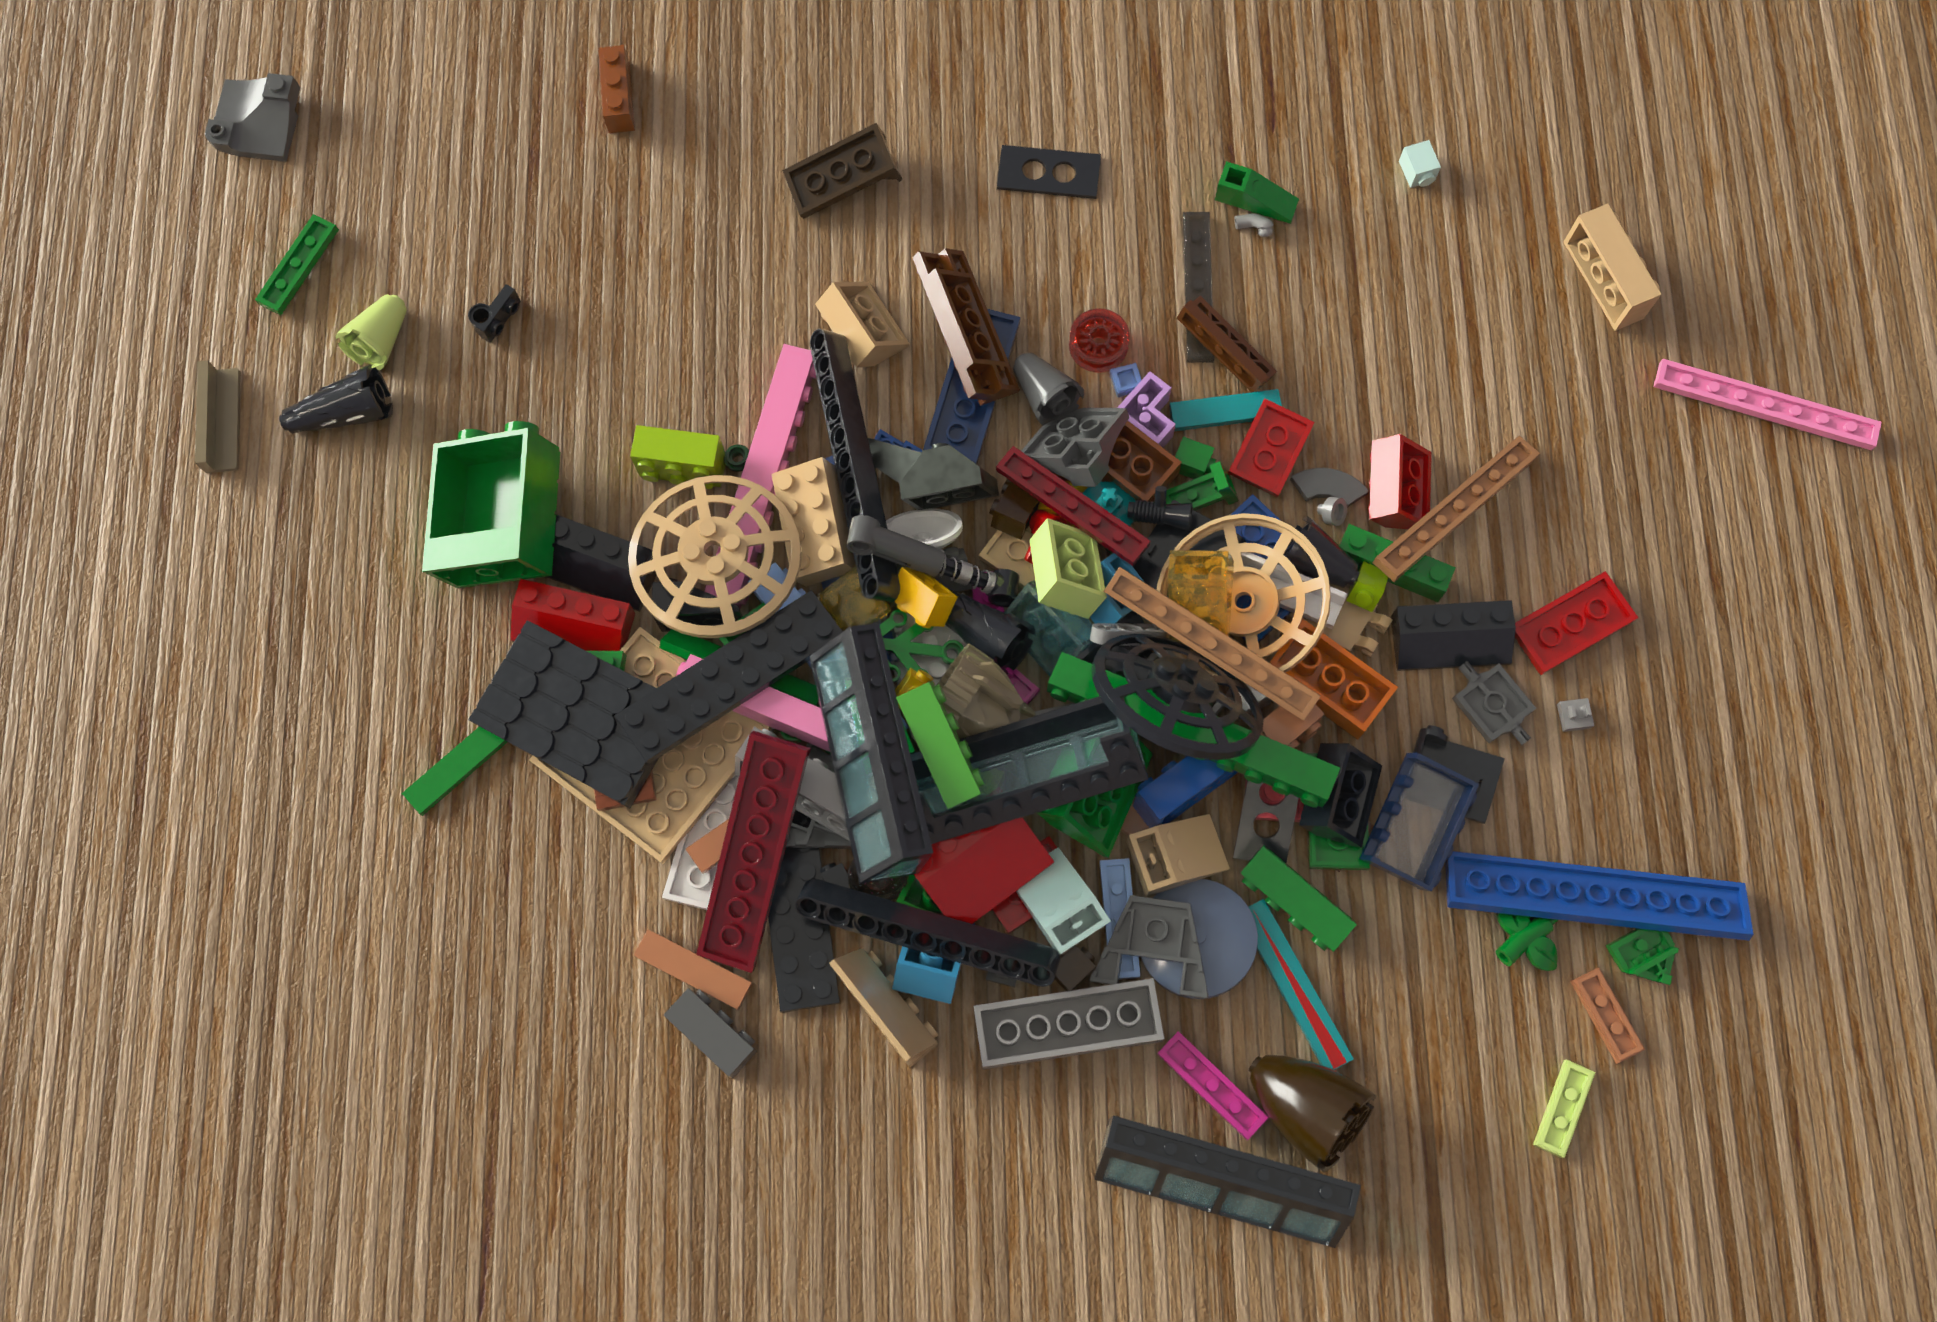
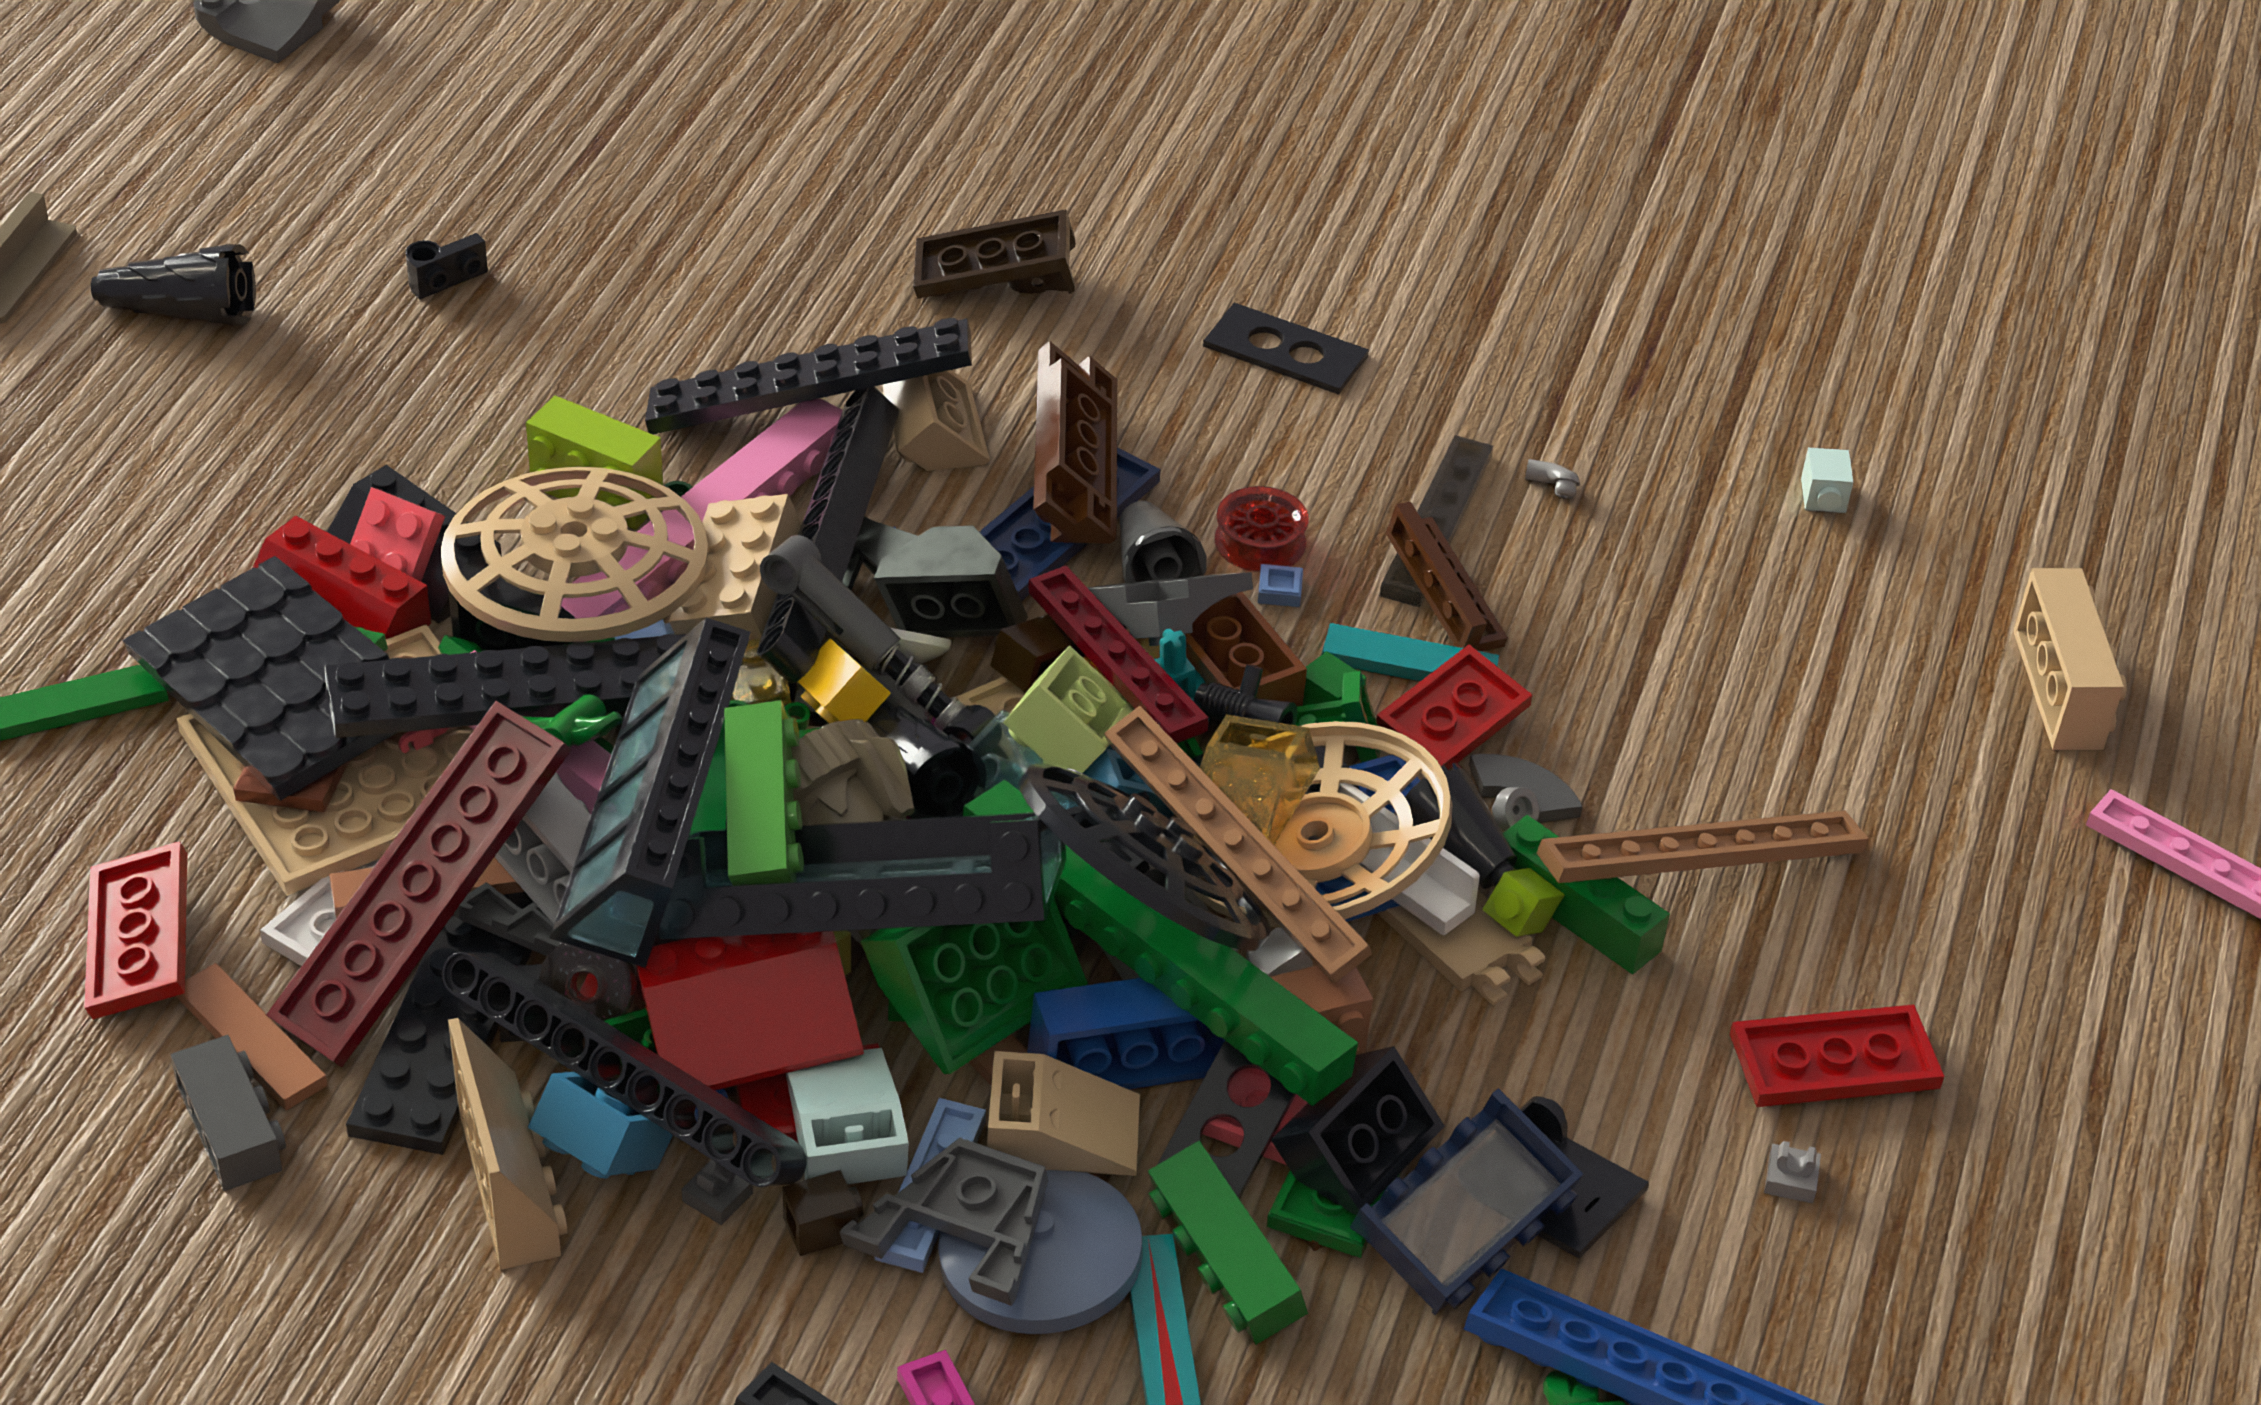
camera: 15 degrees right, 30 degrees down
(296, 264) = (221, 151): green plate -> none
(373, 332) = (275, 230): yellowish green cone -> none
(492, 507) = (305, 427): green brick -> none
(589, 569) = (397, 532): none -> coral plate
(591, 927) = (136, 930): none -> plate
(616, 89) = (744, 104): dark orange brick -> none
(780, 335) = (809, 376): none -> black plate
(781, 706) = (580, 721): none -> green plant
(1068, 1023) = (774, 1276): light grey brick -> none
(1145, 406) = (1295, 606): lavender brick -> none
(1255, 193) = (1564, 436): green slope -> none
(1348, 687) = (1426, 998): orange brick -> none
(1399, 482) = (1636, 790): red slope -> none
(1453, 634) = (1634, 1006): black slope -> none
(1494, 703) = (1663, 1112): dark grey plate -> none

